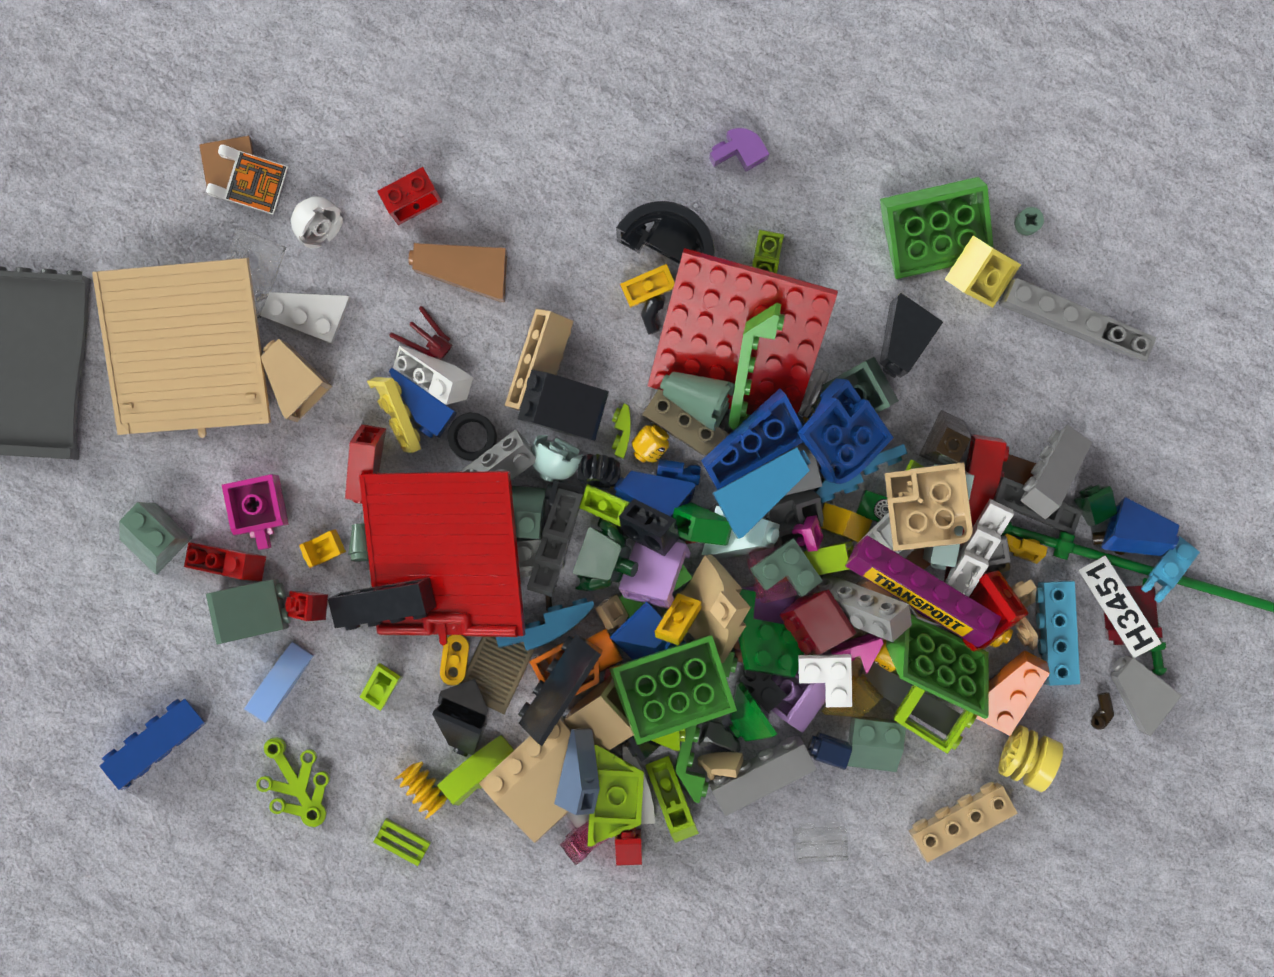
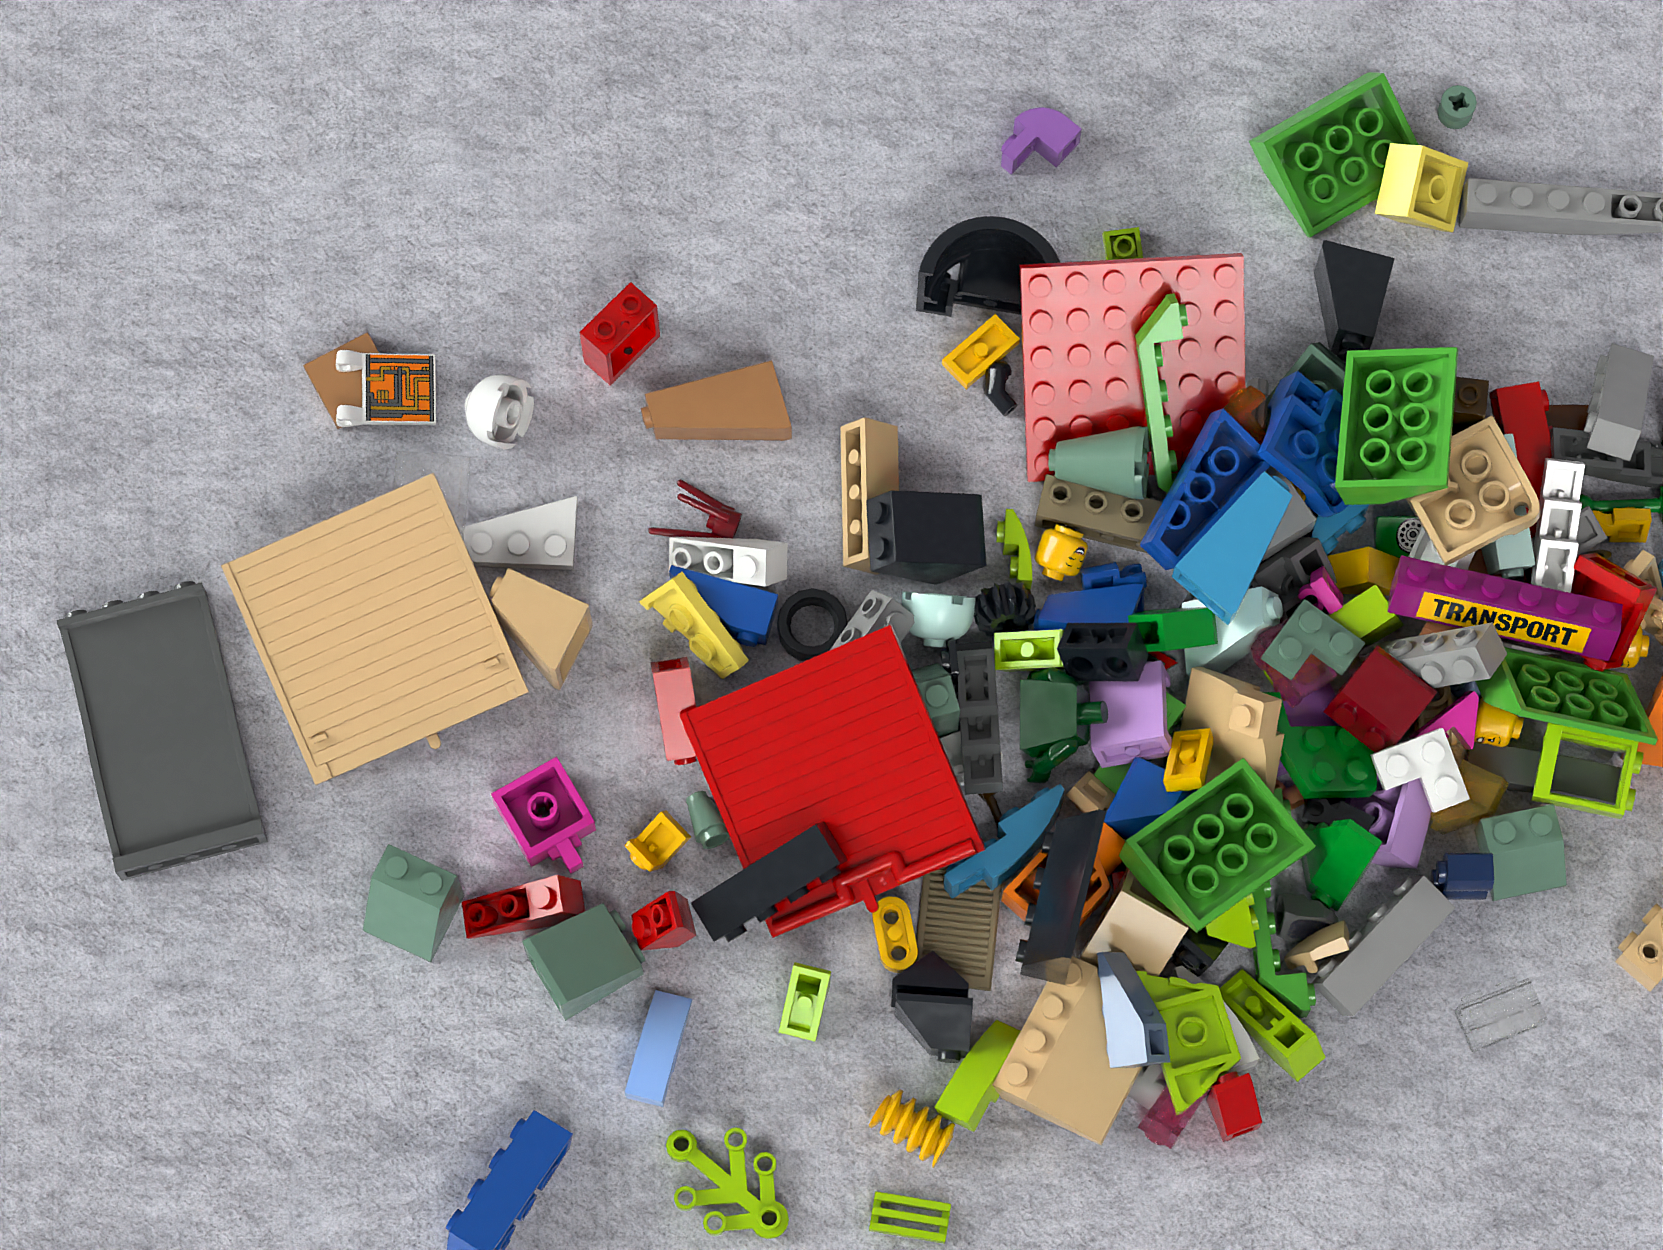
camera: 20 degrees left, 15 degrees down
(800, 392) = (1242, 405): none -> clear orange bracket
(898, 444) = (1395, 424): none -> bright green slope

